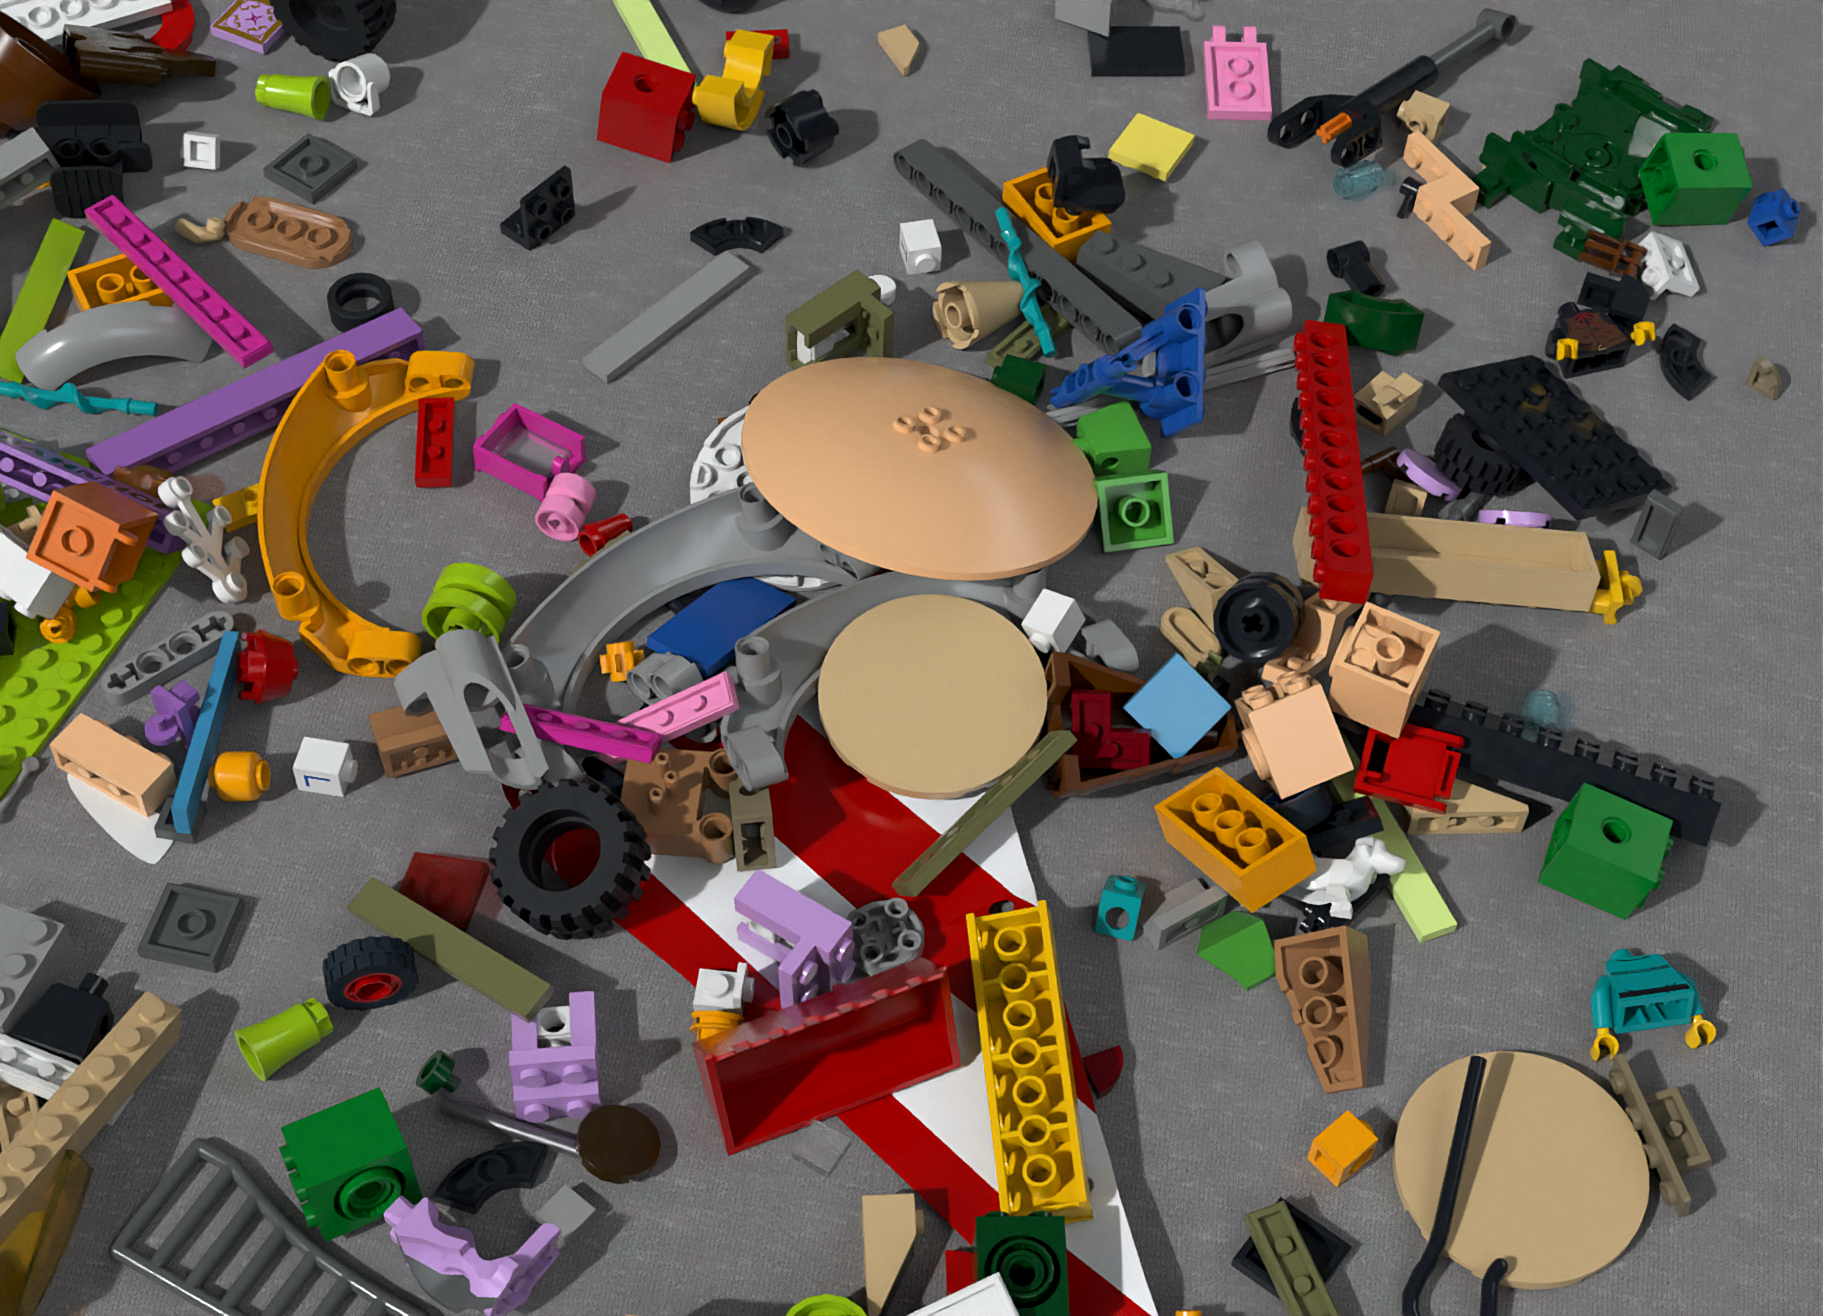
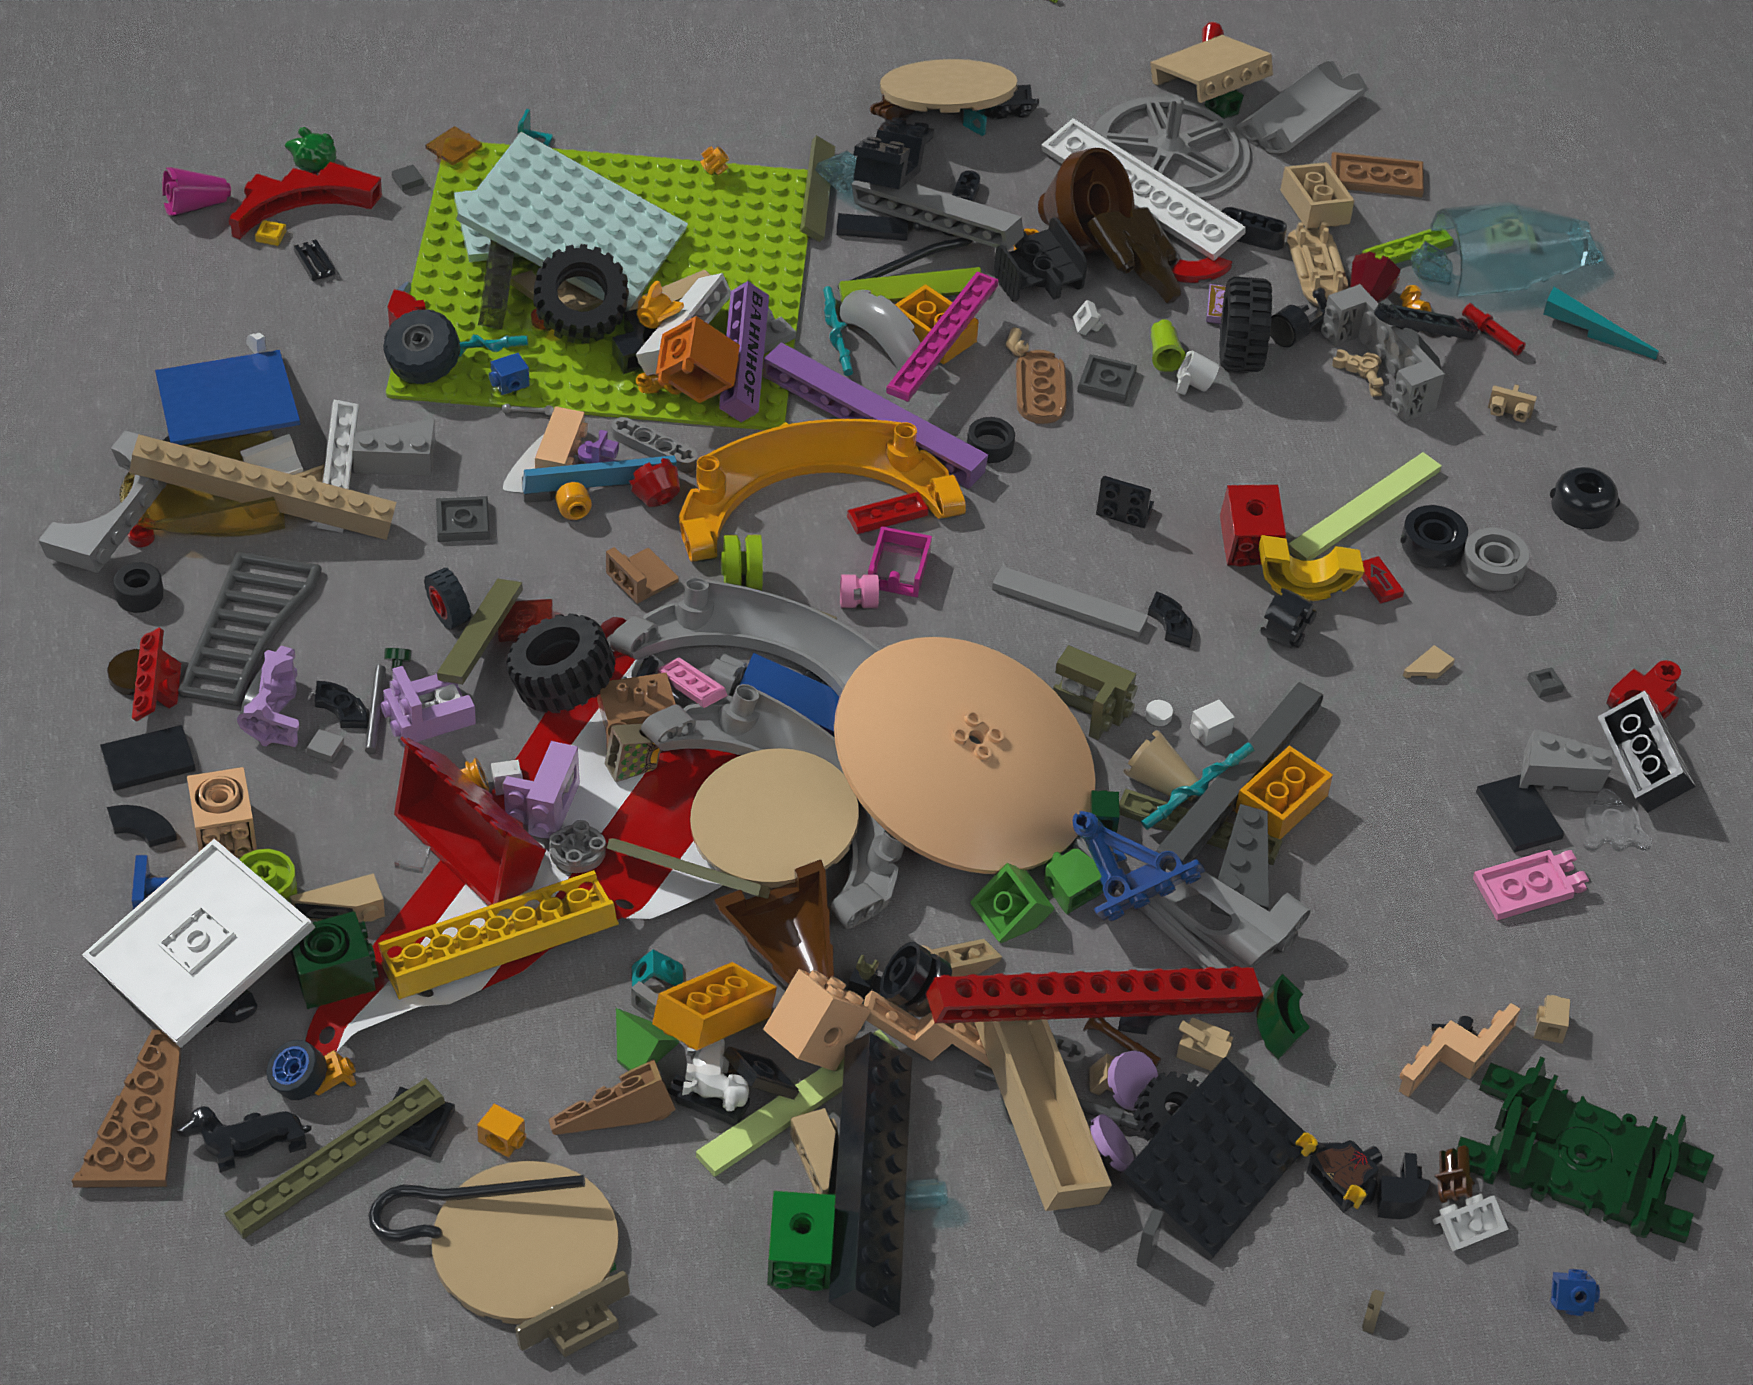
camera: 70 degrees right, 5 degrees down
(68, 1019) = (375, 479): black torso -> none
(142, 477) = (773, 383): clear orange plant -> none
(204, 543) = (736, 424): white plant -> none
(283, 1037) = (395, 578): lime plant -> none
(324, 767) = (597, 537): white brick -> none
(348, 1164) = (314, 626): green brick -> none
(468, 677) = (668, 569): light grey panel -> none
(589, 734) = (659, 640): dark pink tile -> none
(597, 534) = (851, 618): red cone -> none
(617, 1144) = (377, 753): dark brown tile -> none
(620, 659) = (742, 651): light orange gear -> none
(1053, 622) = (858, 862): white brick -> none
(1083, 183) = (1301, 785): black piece -> none
(1100, 743) = (777, 919): dark red plate -> none
(1104, 1070) = (521, 990): dark red tile -> none
(1151, 147) = (1407, 842): light yellow tile -> none
(1177, 706) = (817, 948): dark azure tile -> none
(1301, 809) = (764, 1047): black wheel -> none
(1354, 265) = (1346, 997): black piece -> none
(1358, 179) = (1449, 985): clear light blue brick -> none
(1359, 116) = (1512, 962): black piece -> none
(1381, 669) = (859, 1030): light nougat brick -> none
(1414, 768) = (825, 1103): red container -> none
(1613, 588) = (1080, 1225): yellow hips -> none
(1644, 995) = (688, 1289): teal torso -> none
(1680, 362) = (1367, 1250): black tile -> none
(1695, 178) = (1571, 1214): green brick -> none

